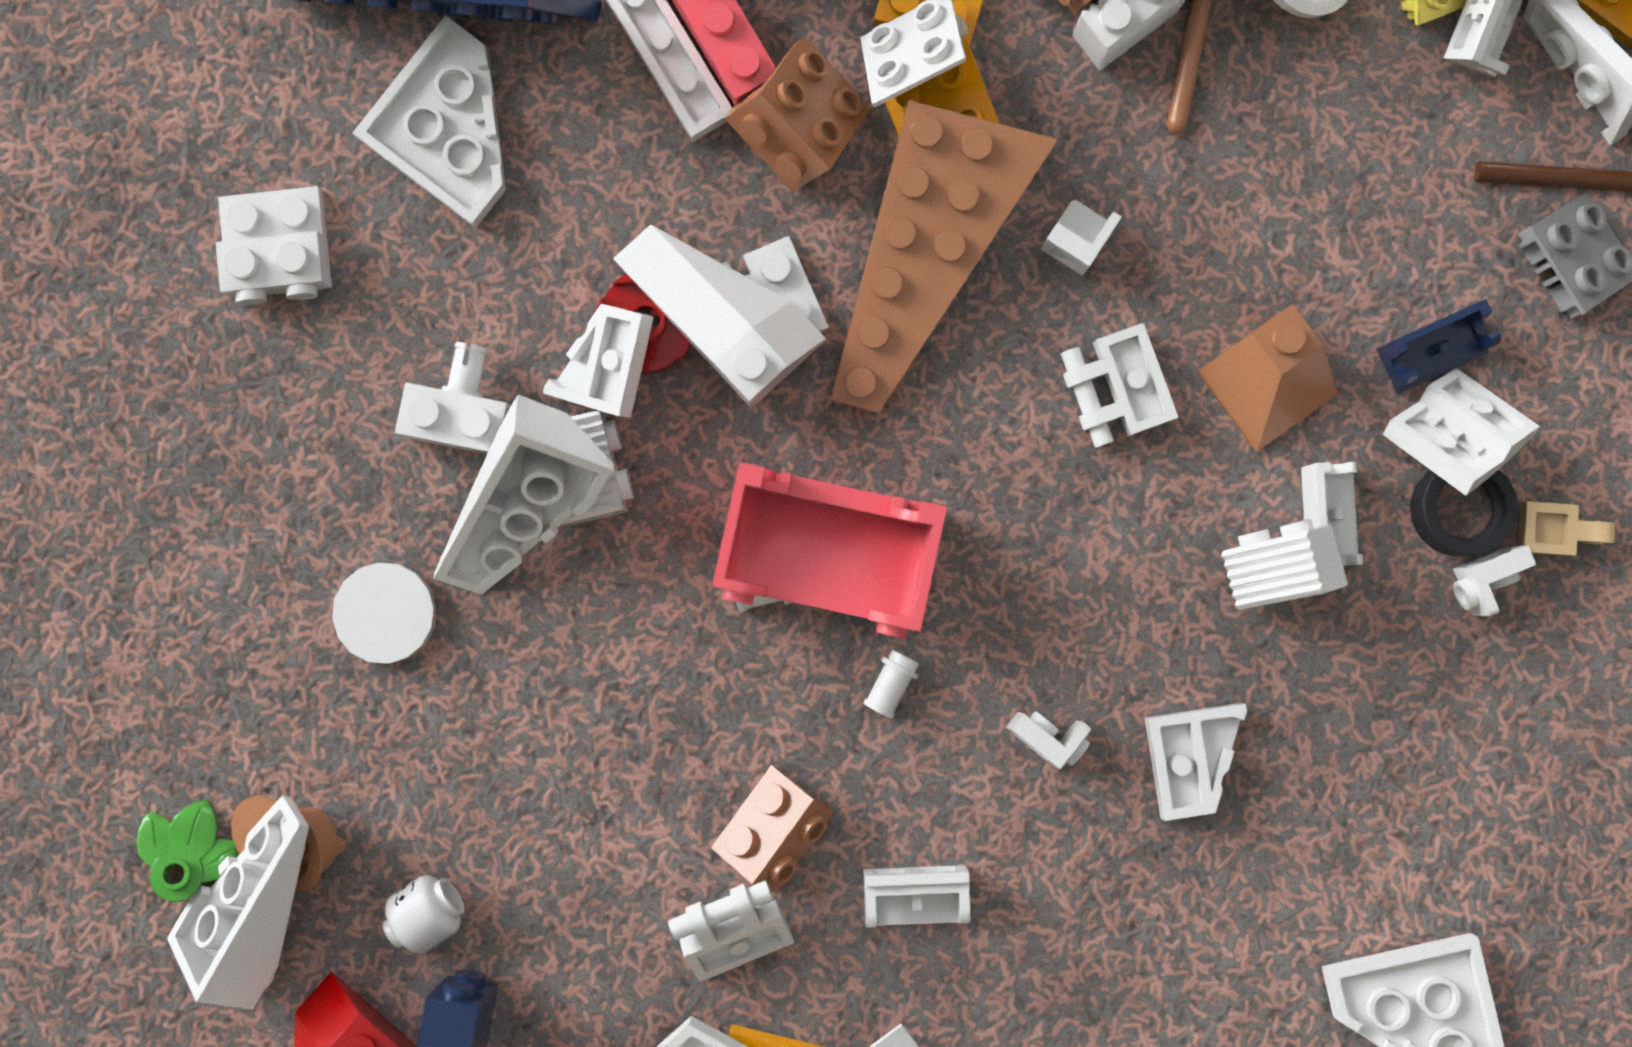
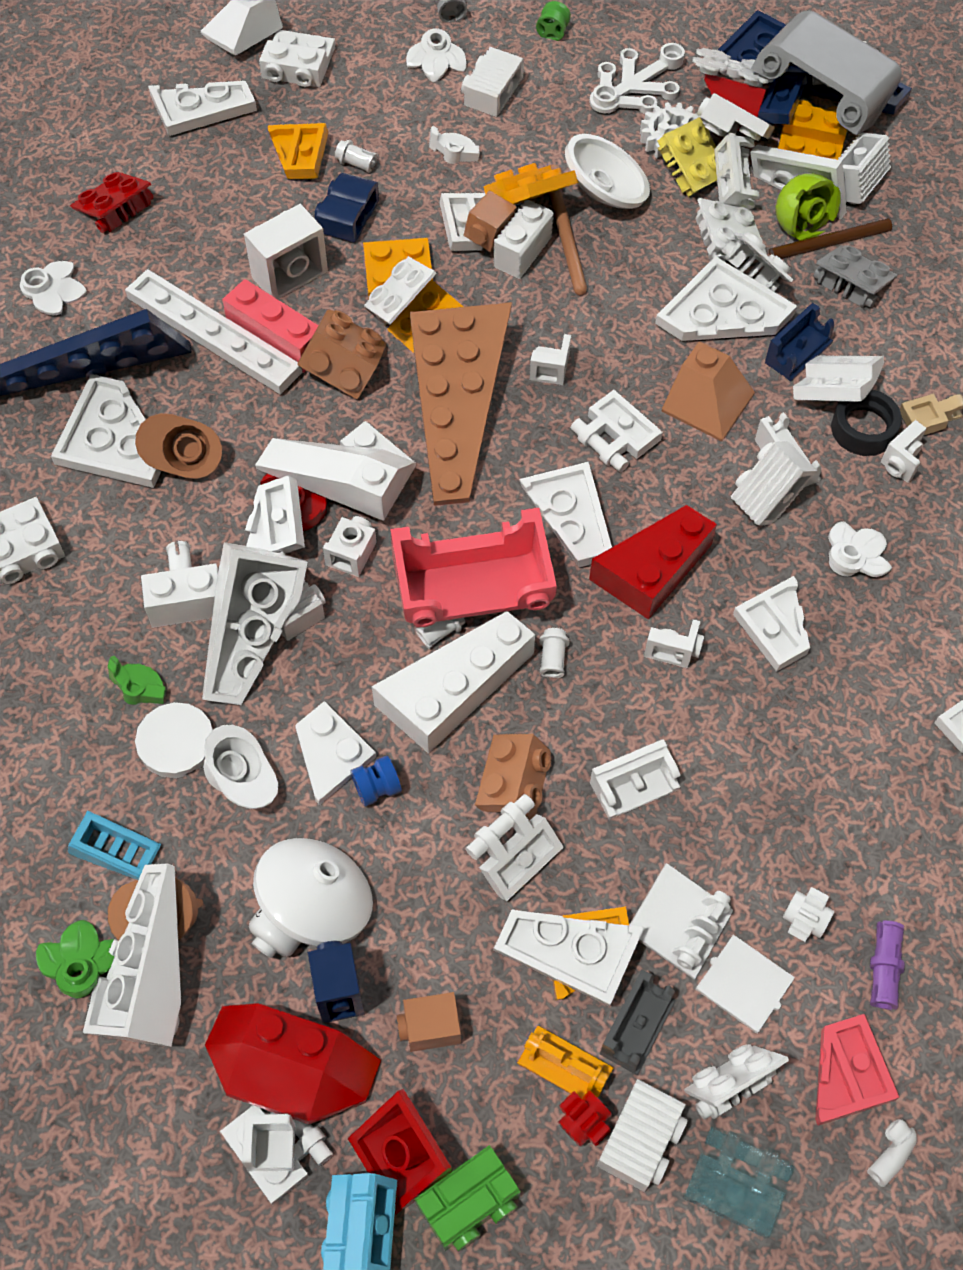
camera: 20 degrees left, 25 degrees down
(225, 717) = (79, 848): none -> medium azure slope
(363, 514) = (136, 682): none -> bright green piece
(442, 700) = (239, 767): none -> white piece
(442, 890) = (312, 891): none -> white dish
(521, 191) = (178, 445): none -> nougat piece
(566, 703) = (330, 750): none -> white wing
(602, 772) = (376, 781): none -> blue wheel
(691, 444) = (350, 554): none -> white brick
(740, 683) = (450, 683): none -> white wedge
(1006, 487) = (571, 510): none -> white wing
(1079, 612) = (654, 561): none -> red wedge
(1358, 690) = (857, 551): none -> white plate
(1364, 238) = (724, 305): none -> white plate
(1437, 109) = (720, 222): none -> white hinge
(1444, 198) = (750, 244): none -> white hinge
(1570, 111) = (805, 200): none -> lime cylinder

